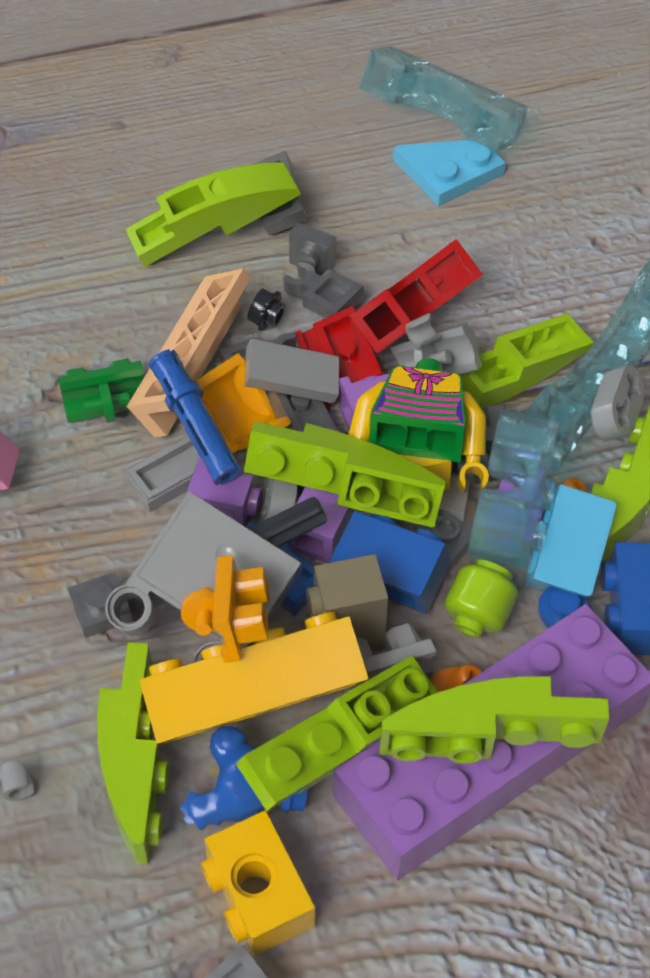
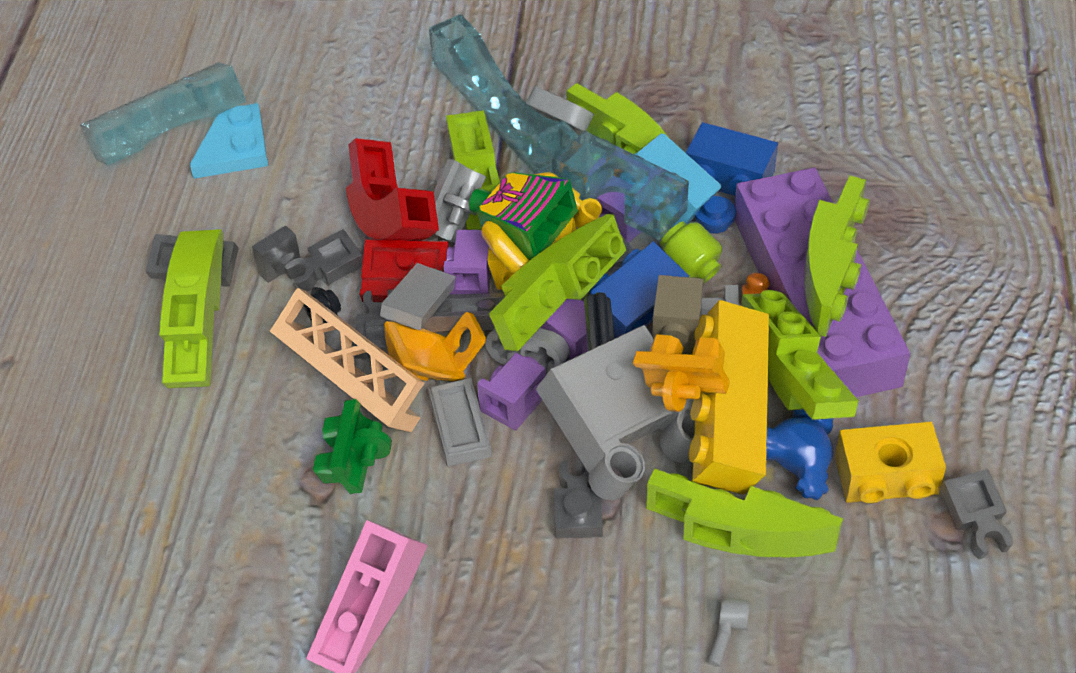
camera: 65 degrees left, 5 degrees down
(186, 401) = (449, 362): blue pin -> none
(421, 332) = (443, 190): light grey hand -> none

